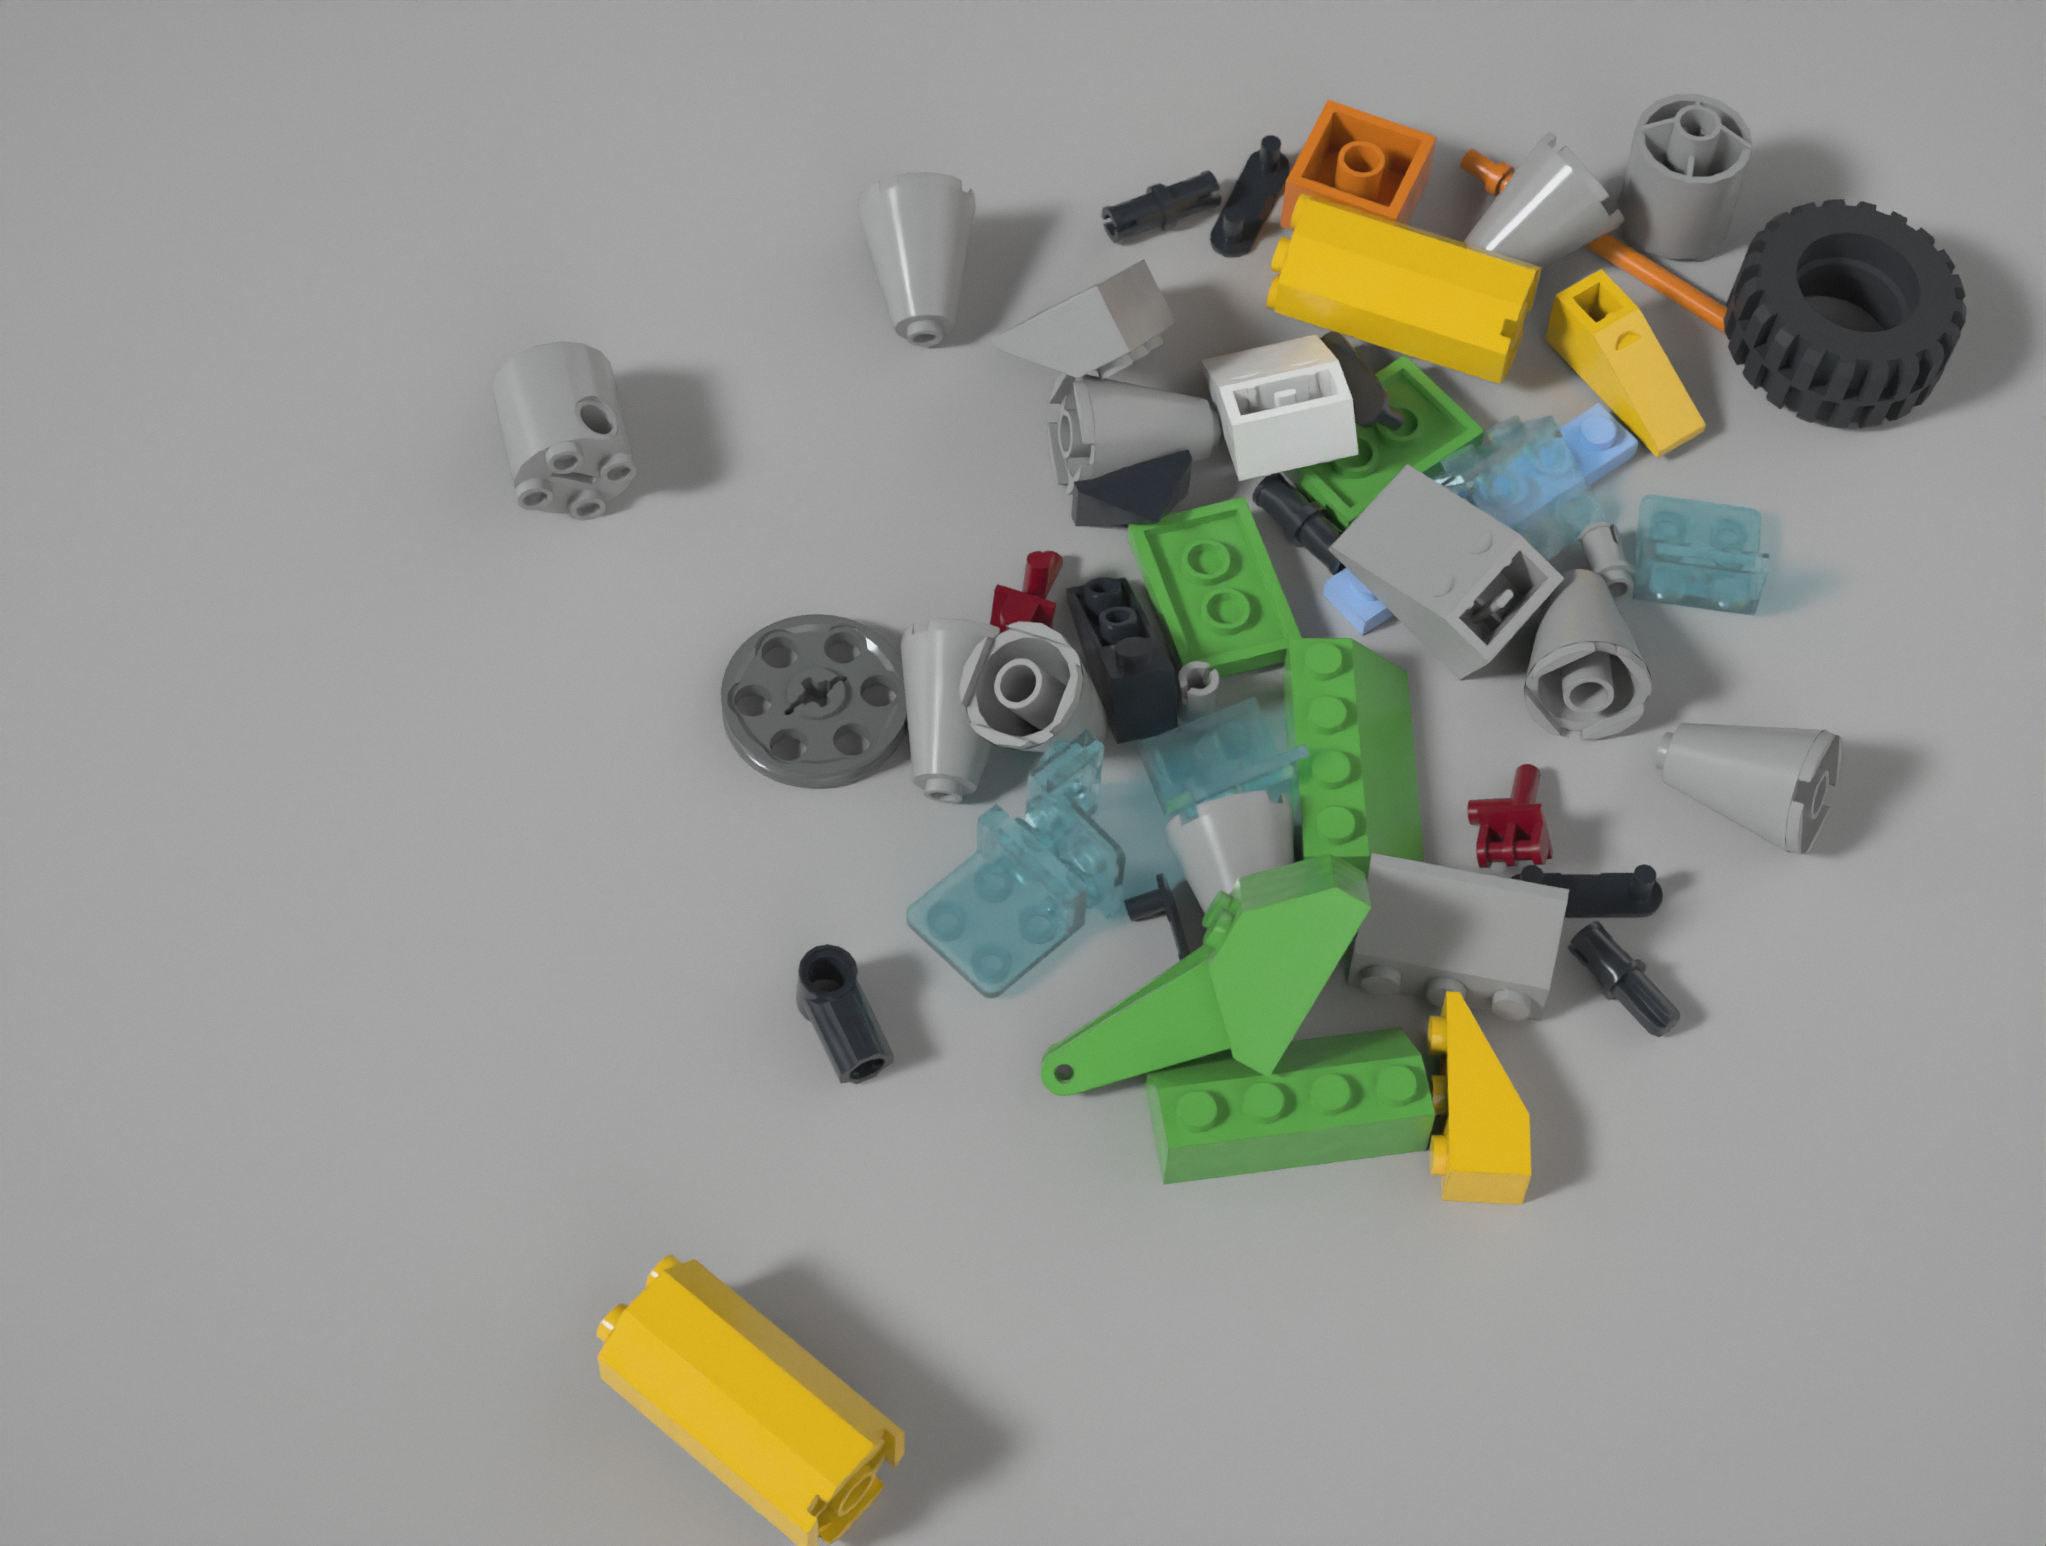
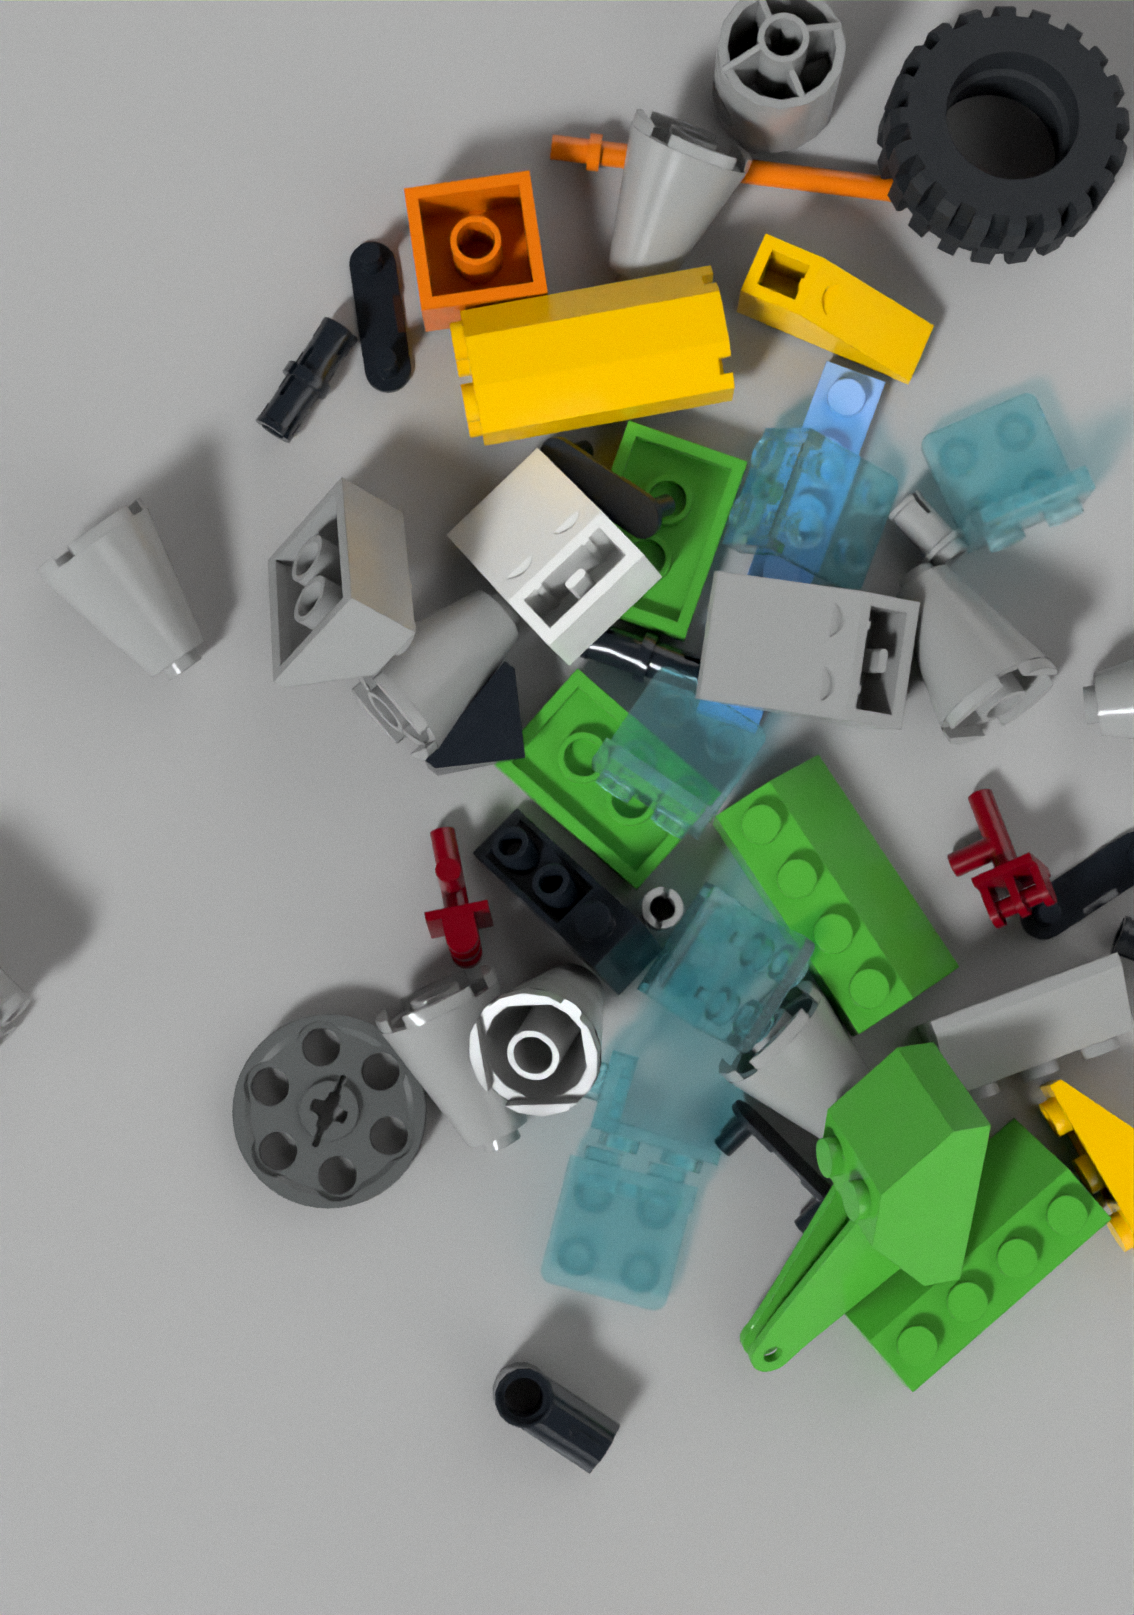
camera: 25 degrees left, 25 degrees up
(1284, 583) = (678, 754): none -> clear light blue bracket

